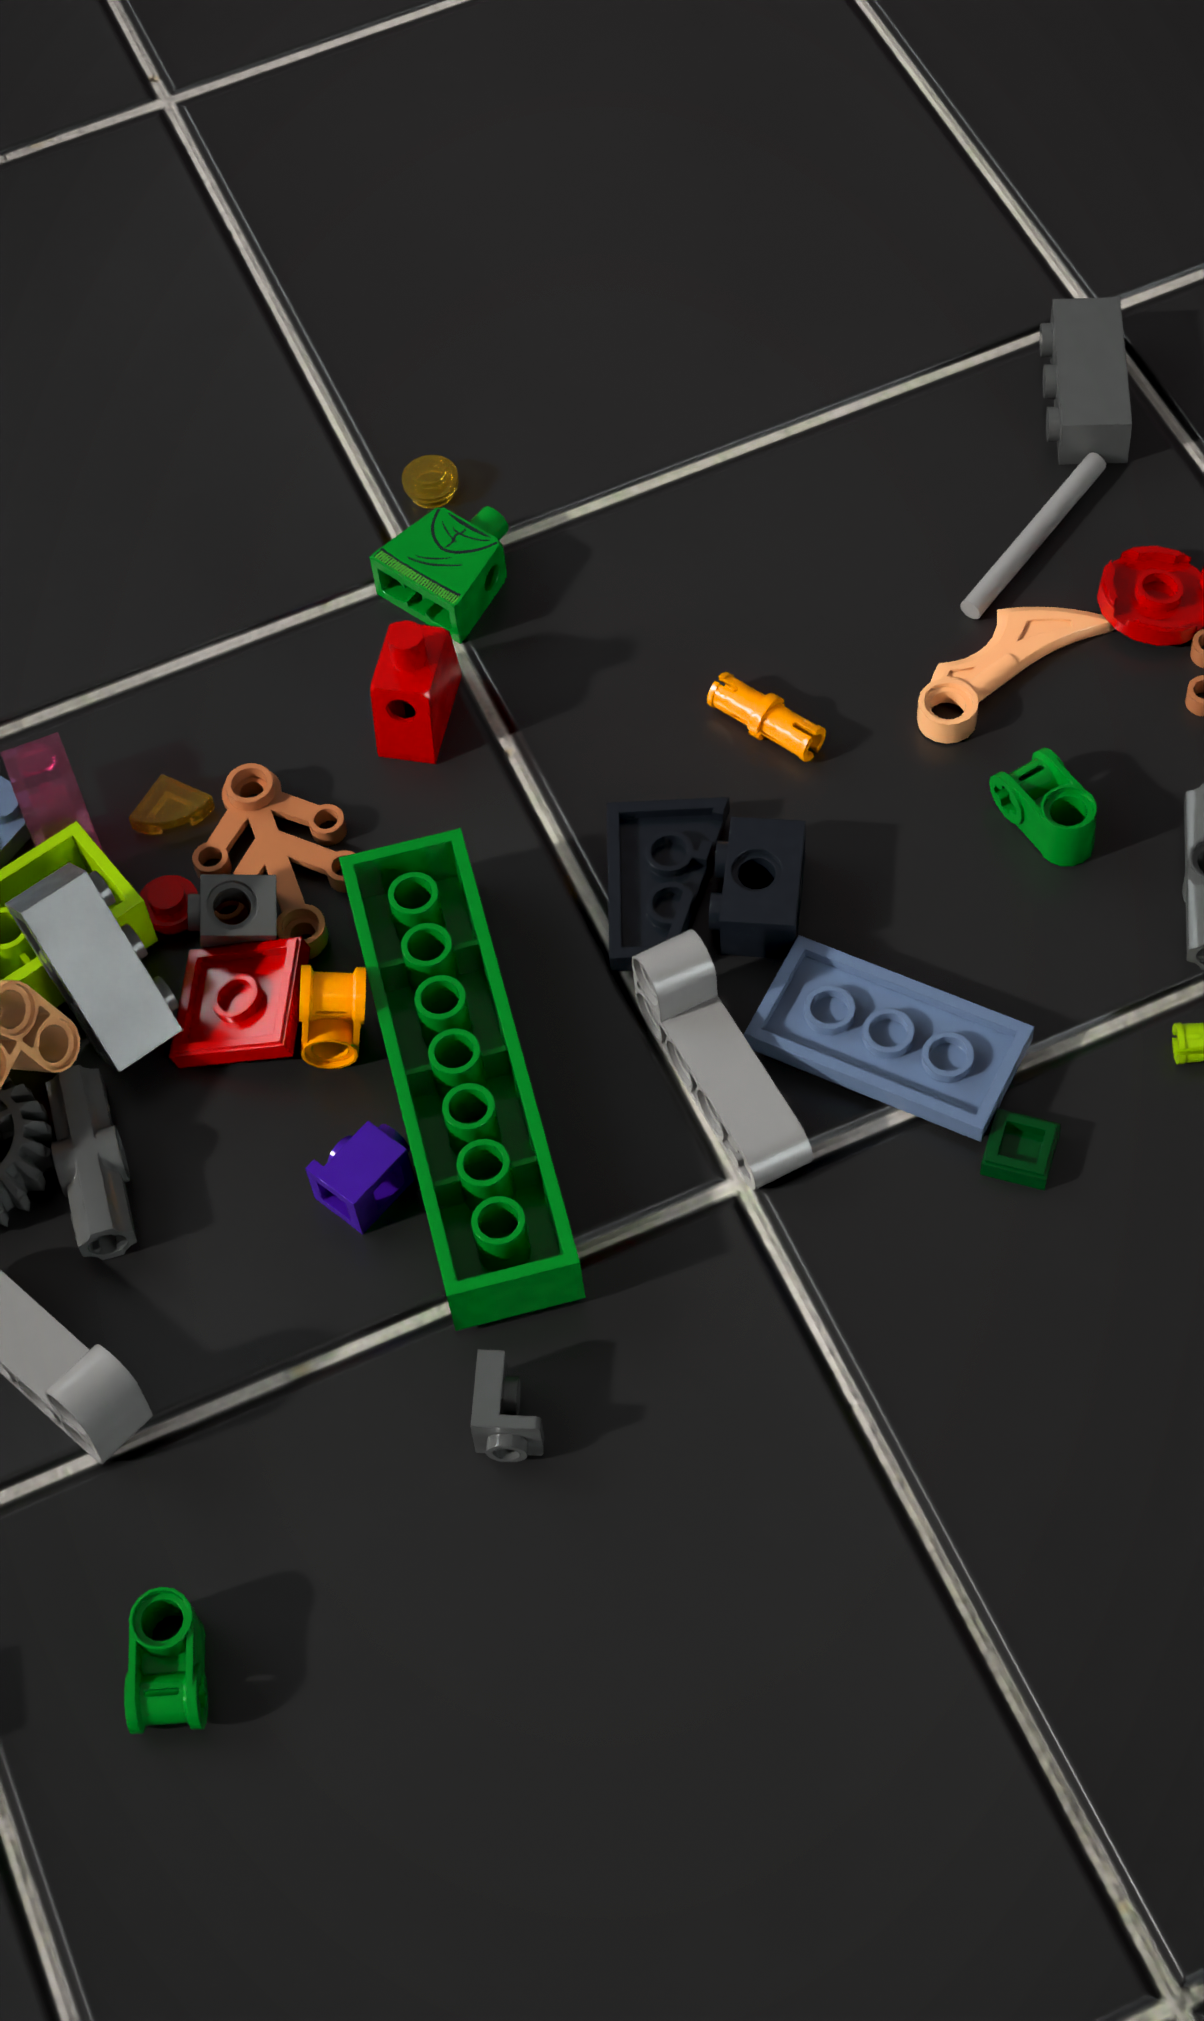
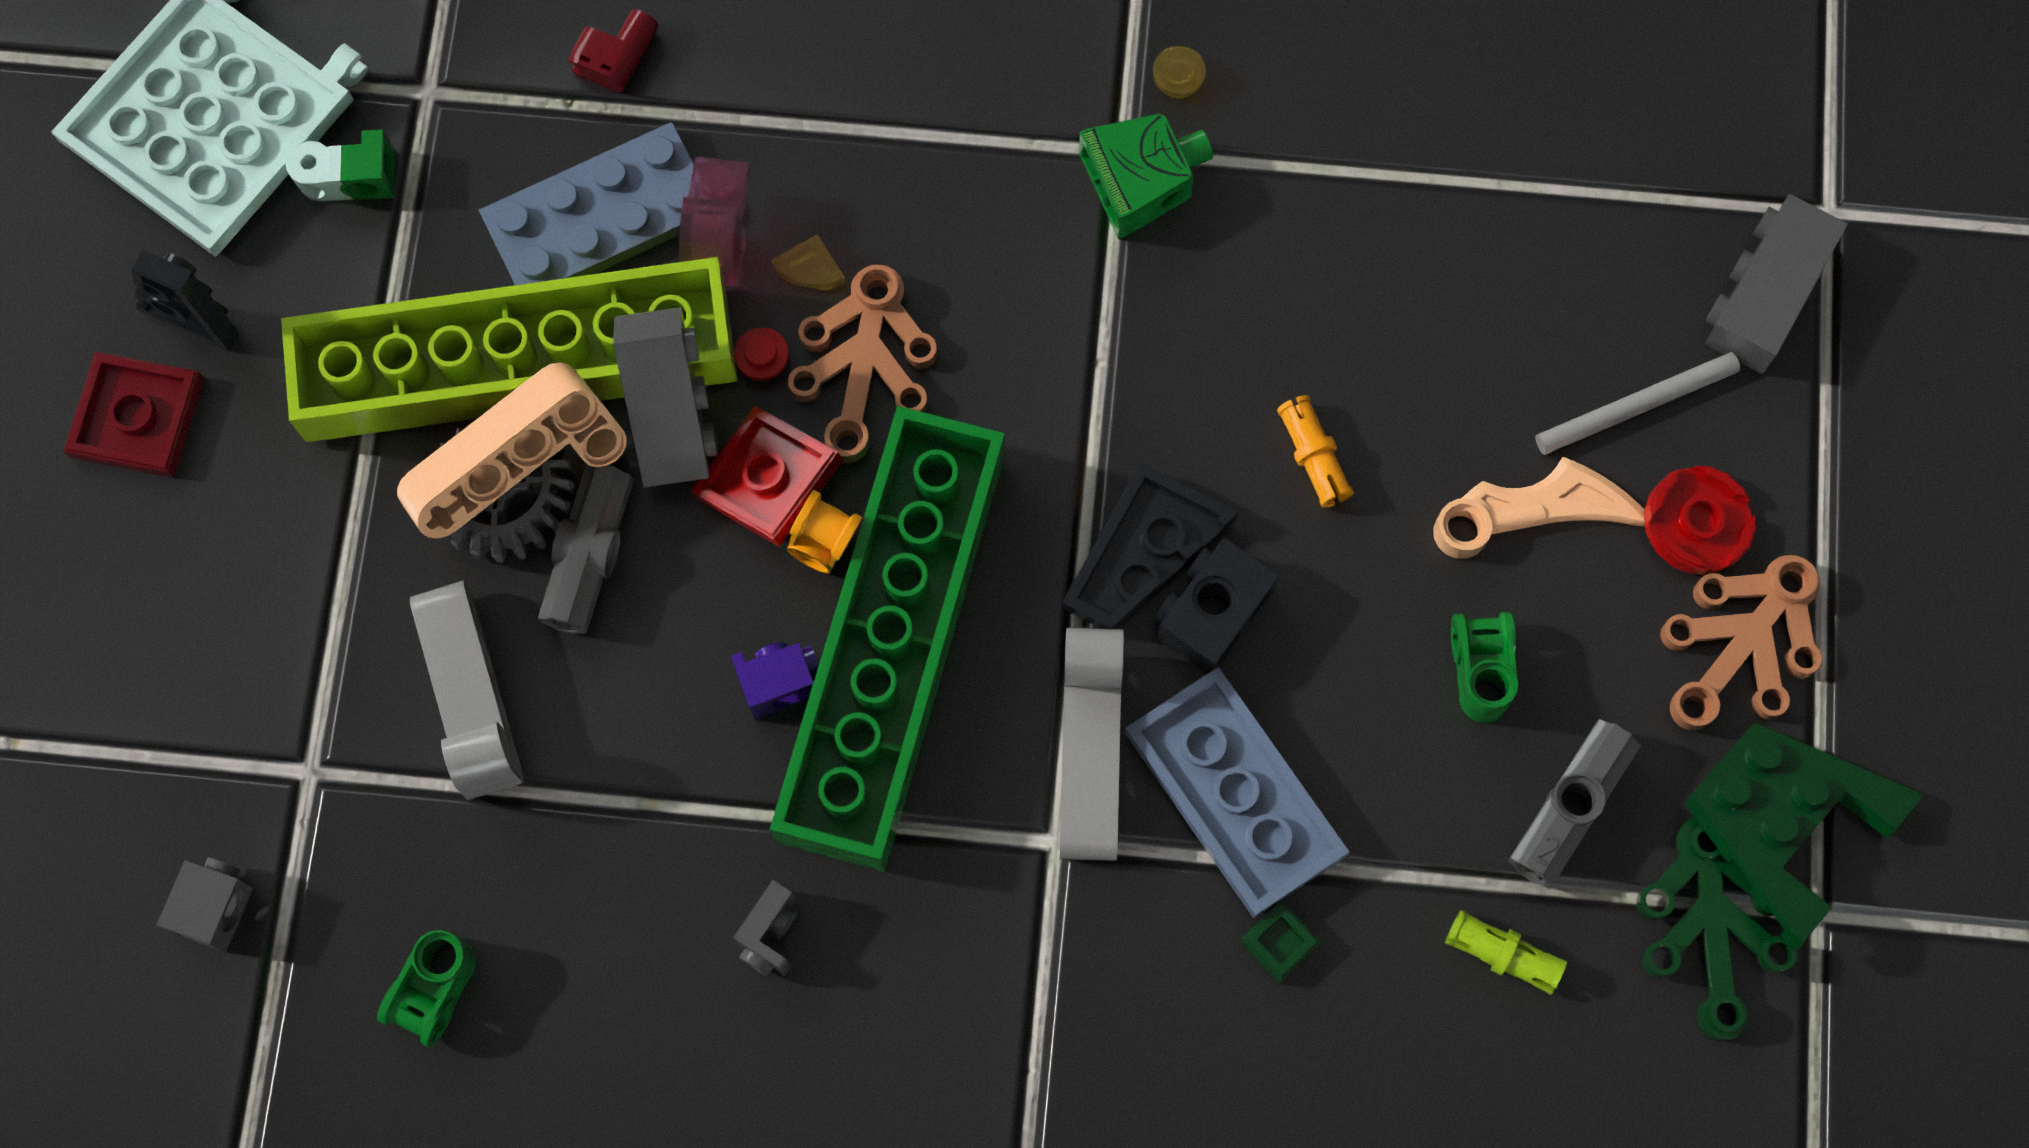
camera: 25 degrees right, 15 degrees up
(253, 891) = (825, 399): dark grey brick -> none
(419, 670) = (1053, 270): red torso -> none

